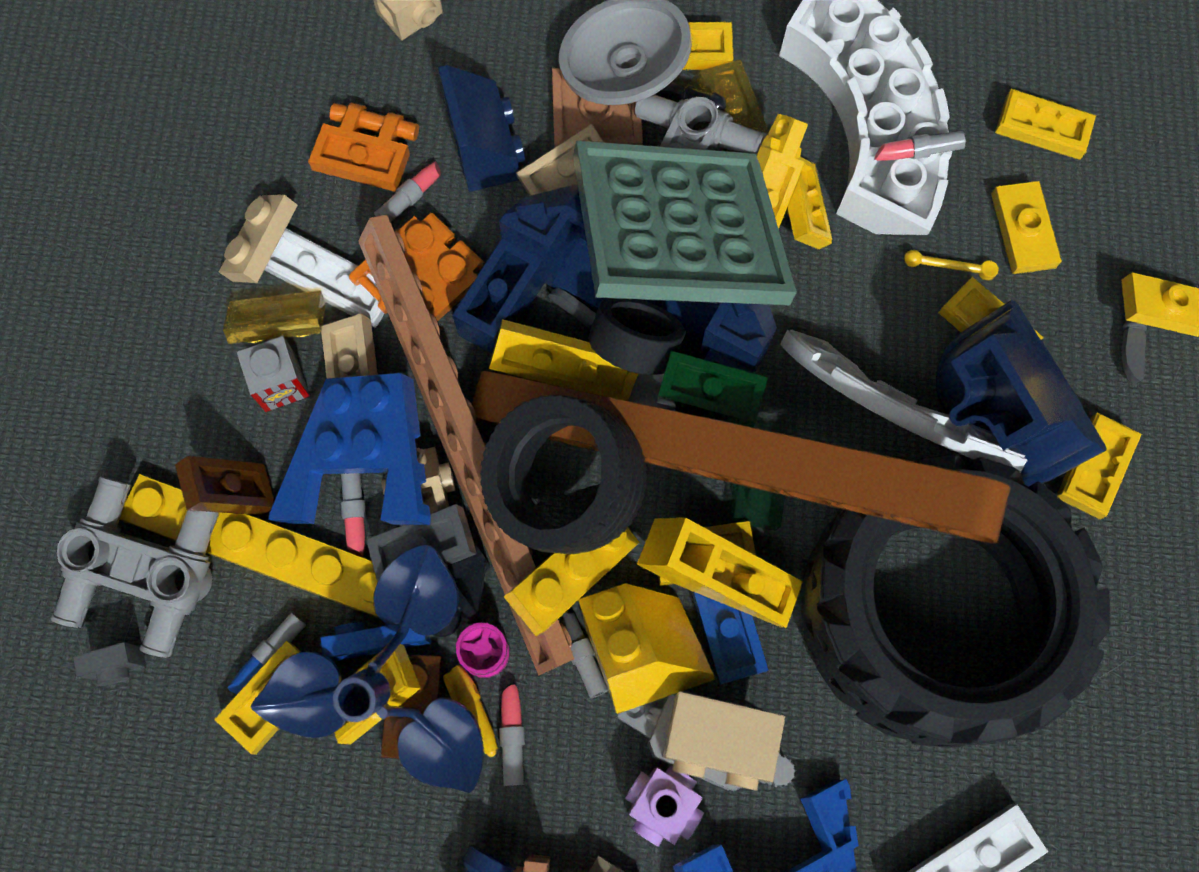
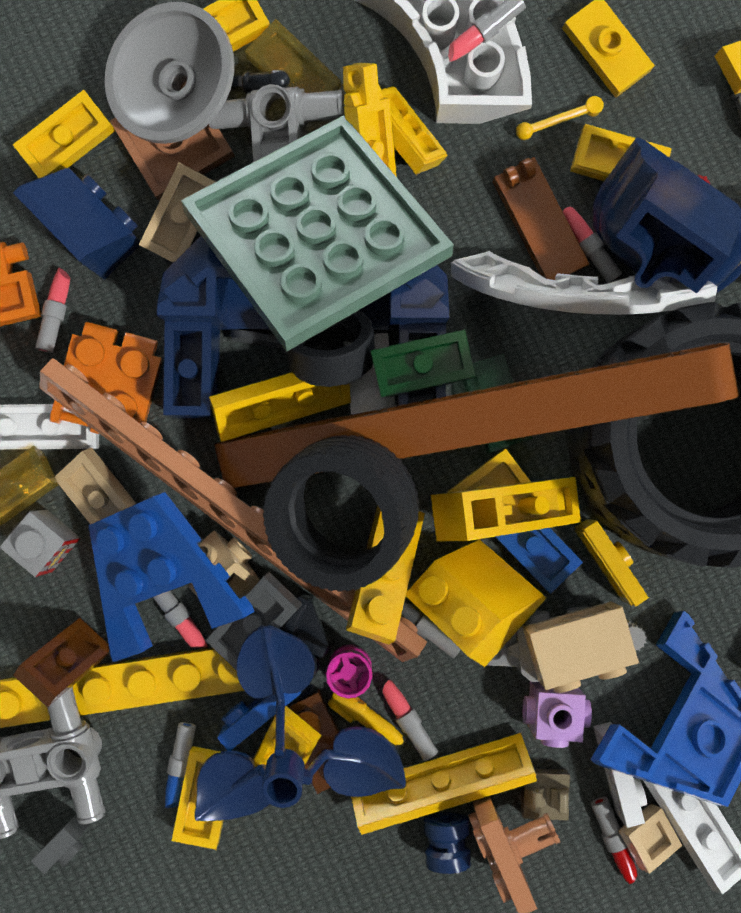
camera: 30 degrees left, 15 degrees up
(509, 60) = (64, 136): none -> yellow plate
(514, 819) = (448, 783): none -> yellow plate
(798, 686) = (612, 561): none -> yellow plate
(889, 333) = (539, 220): none -> dark orange hinge
(925, 380) = (592, 245): none -> light grey piece

